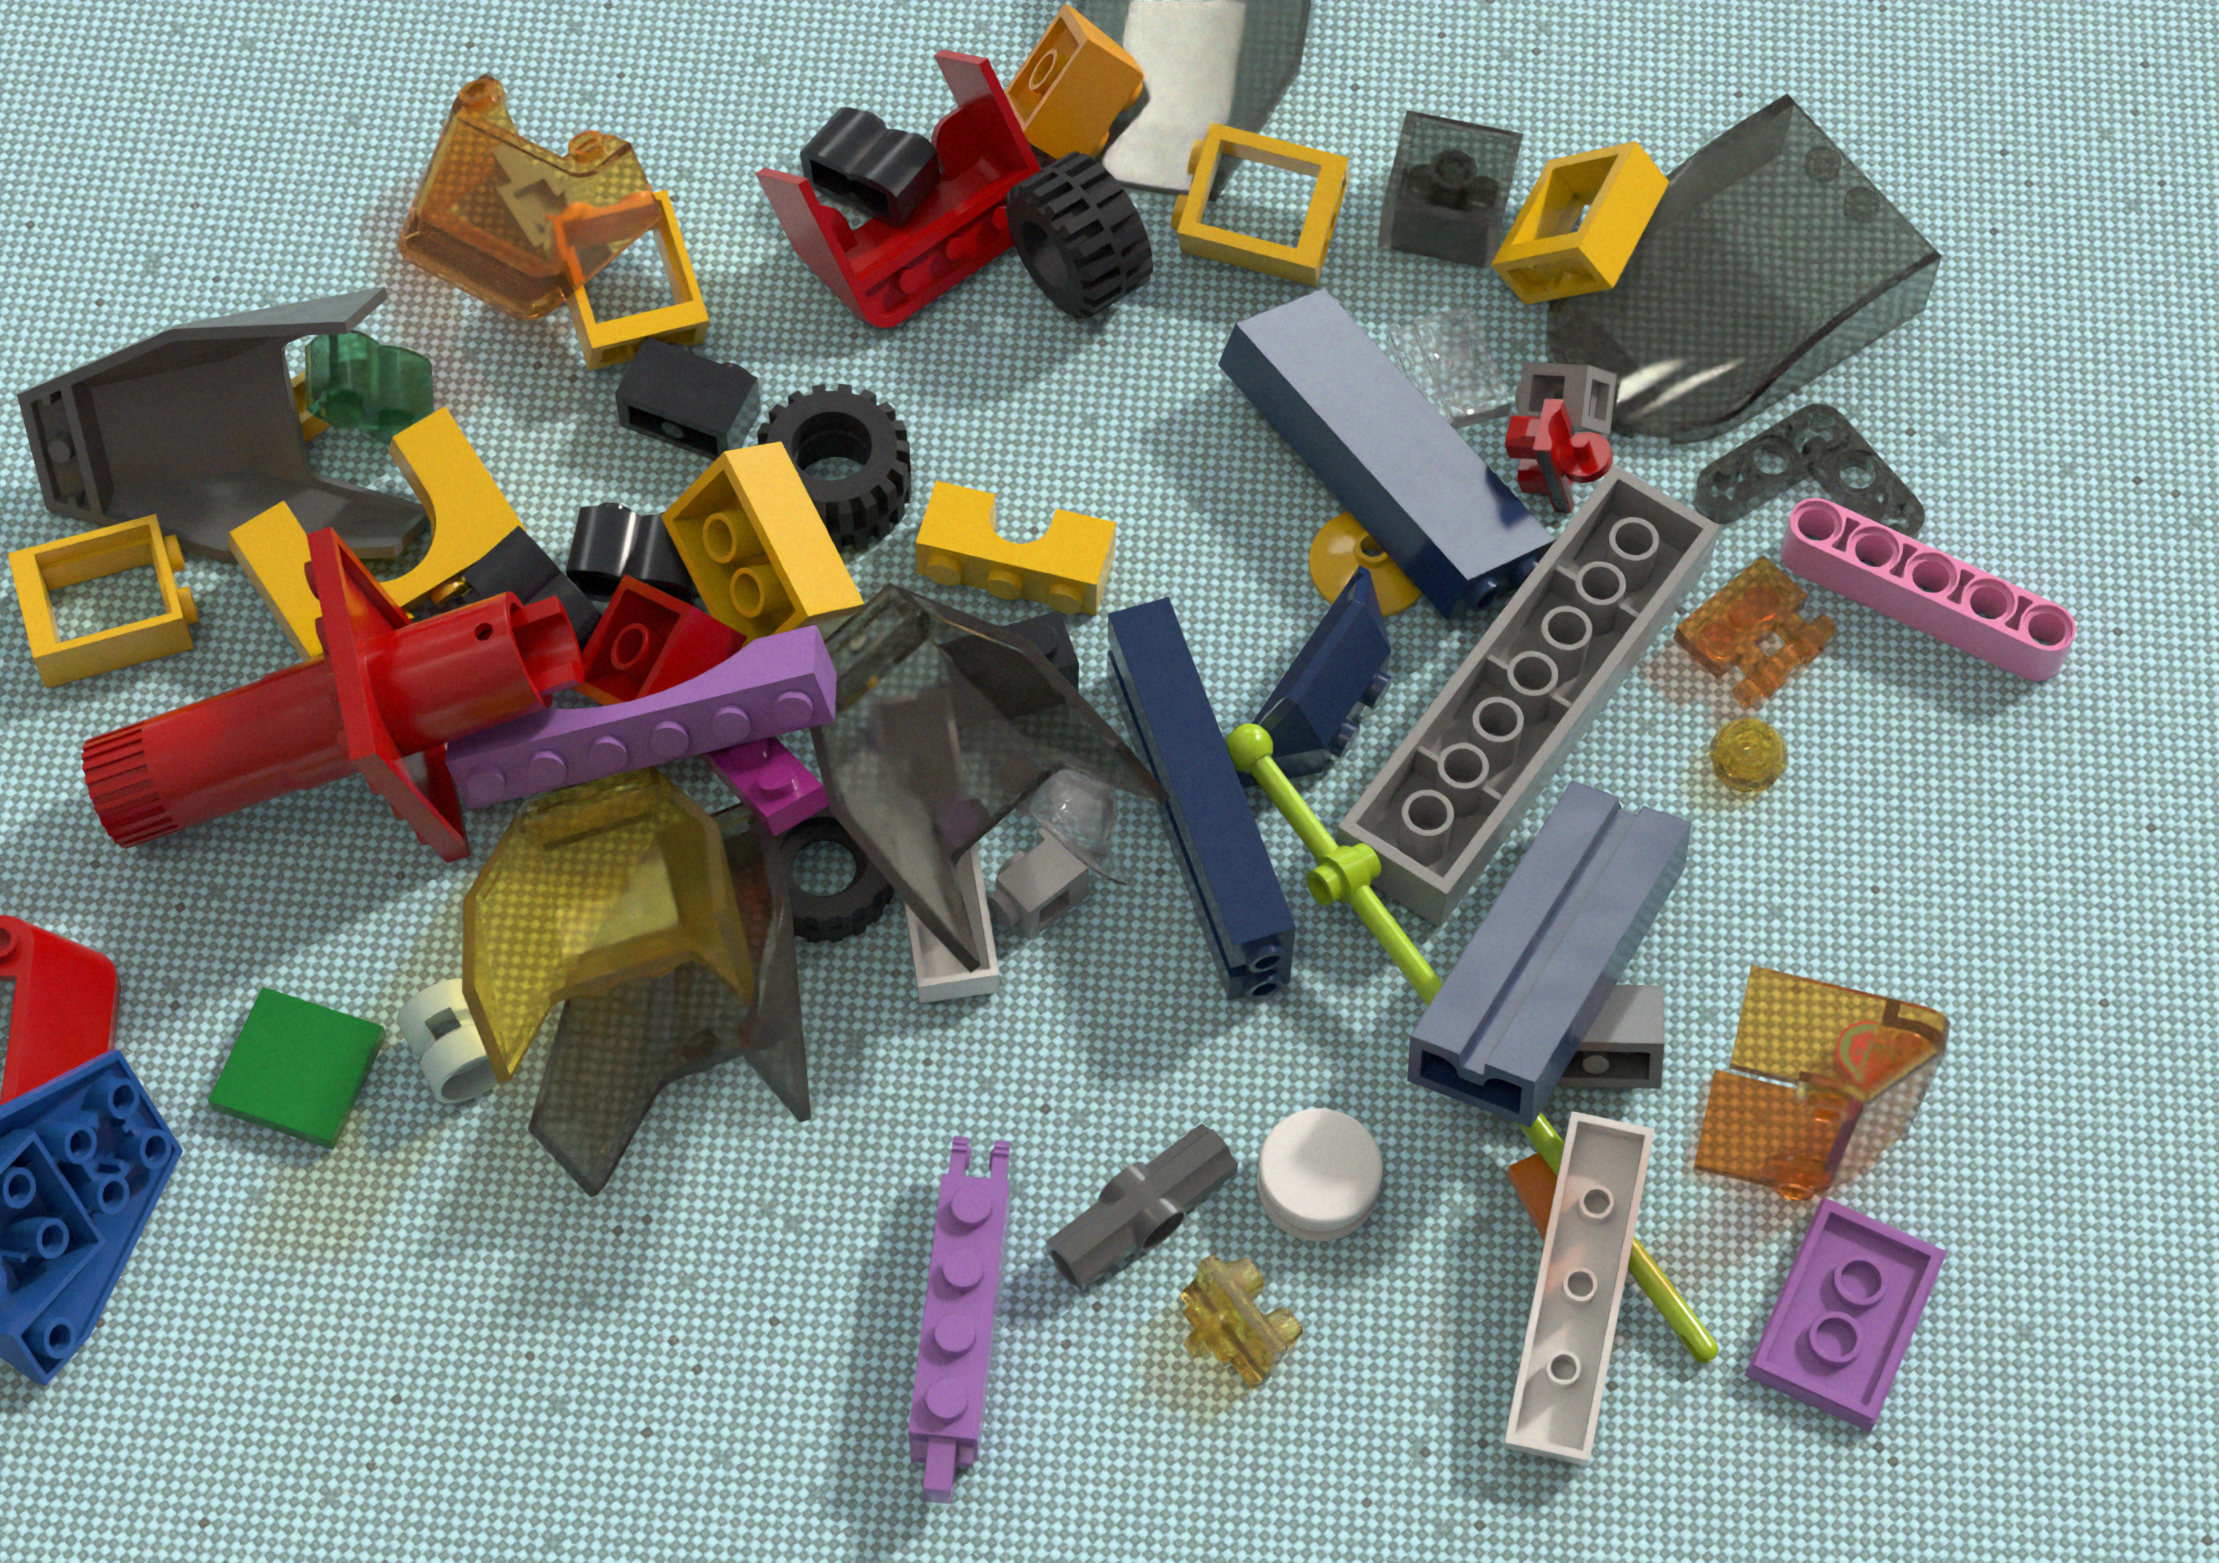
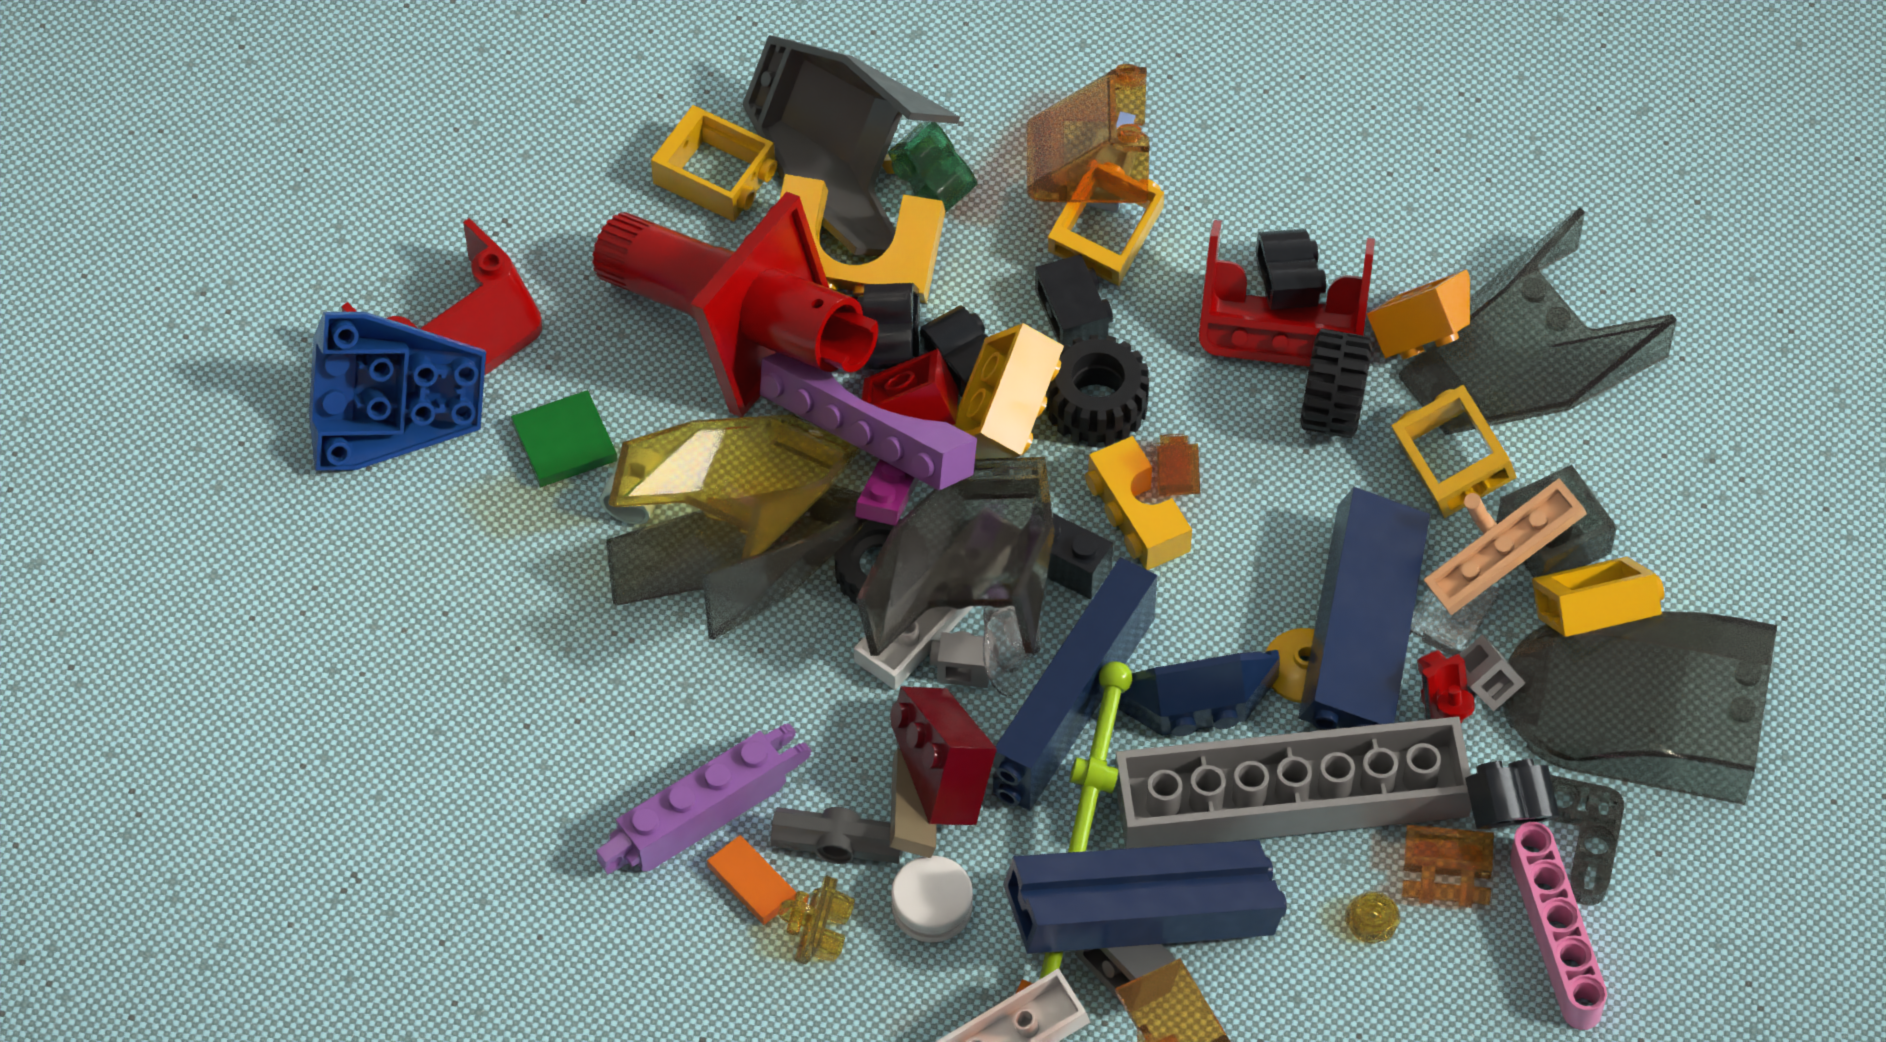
camera: 50 degrees right, 5 degrees down
(1015, 466) = (1175, 465): none -> clear orange slope
(1105, 1348) = (751, 879): none -> orange tile
(1159, 1003) = (943, 754): none -> dark red wedge
(1187, 1090) = (908, 821): none -> dark tan tile
(1447, 248) = (1503, 544): none -> light nougat plate
(1756, 495) = (1511, 794): none -> black brick

